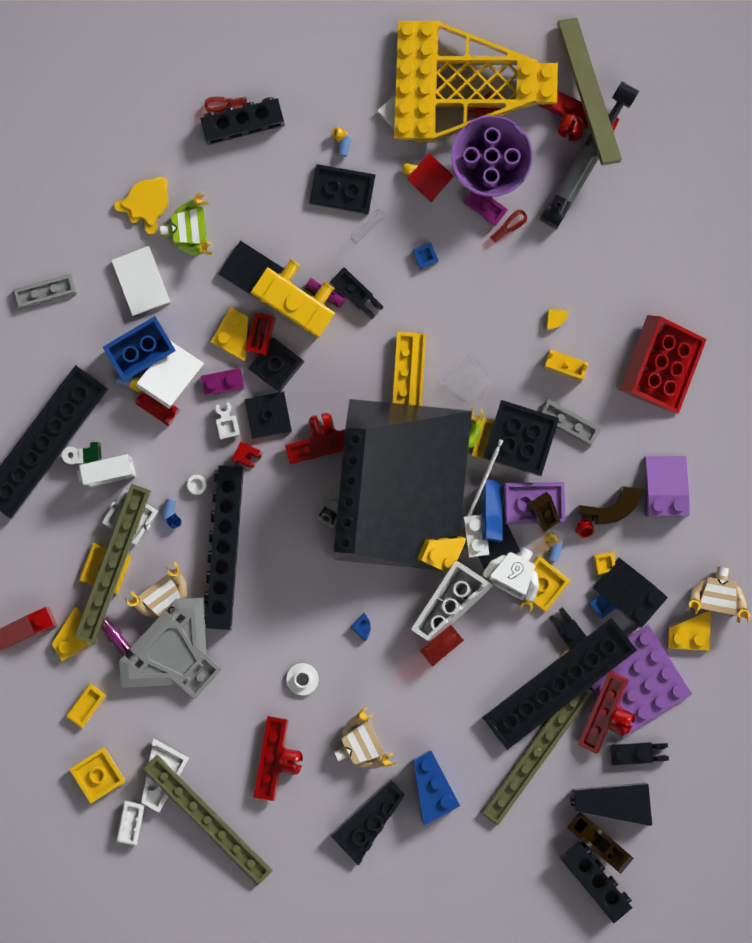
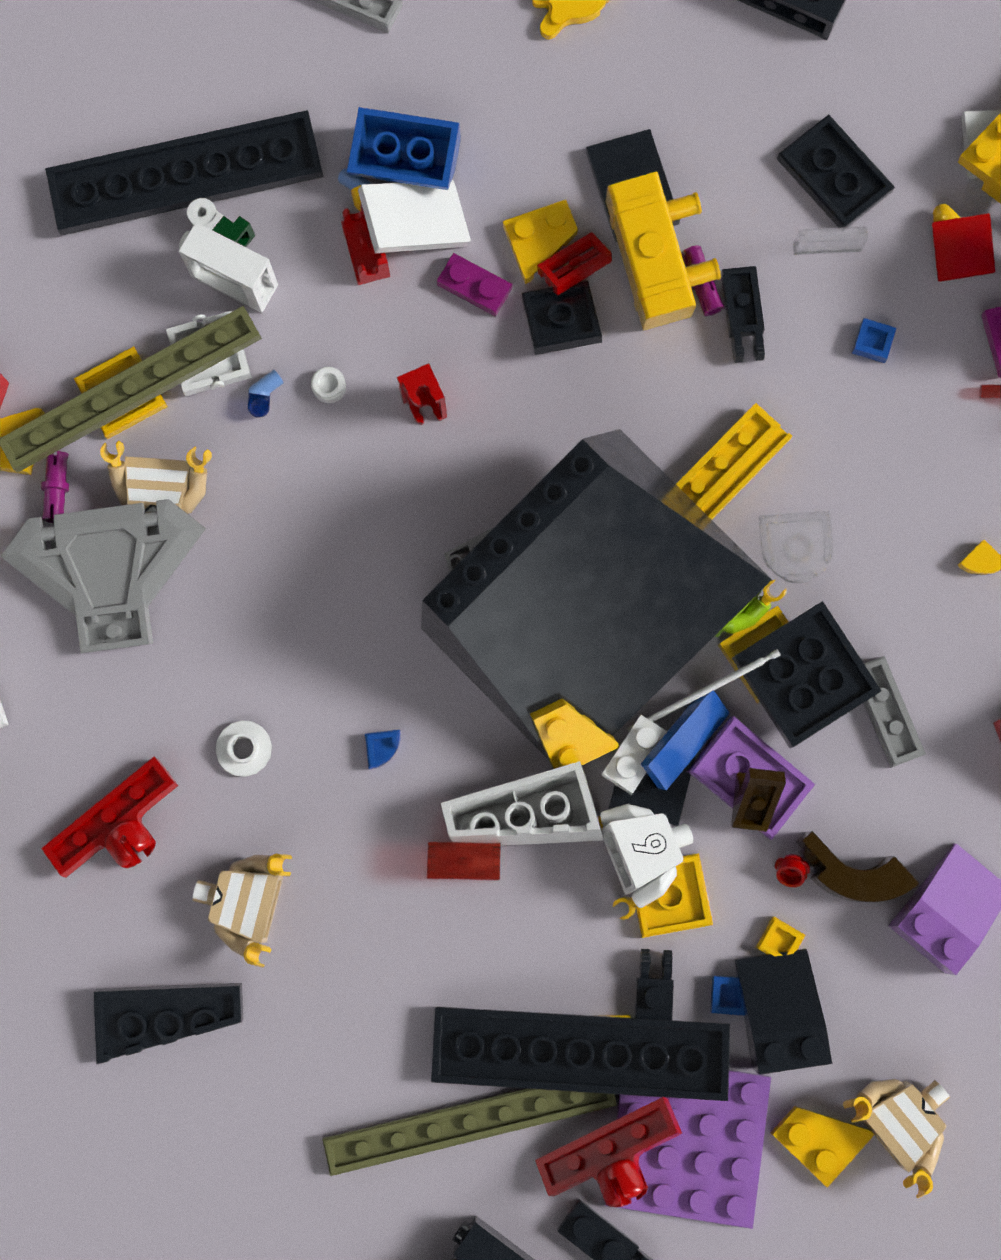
camera: 40 degrees right, 5 degrees down
(141, 281) = (480, 79): white tile -> none
(189, 227) = (600, 57): torso -> none
(222, 475) = (313, 486): black brick -> none
(228, 424) = (434, 341): white plate -> none
(268, 415) = (496, 373): black plate -> none
(323, 441) = (529, 460): red plate -> none
(343, 139) = (888, 112): arm -> none
(433, 788) = (286, 1048): blue wedge -> none
(554, 544) = (731, 857): arm -> none
(566, 365) = (944, 632): yellow hinge -> none

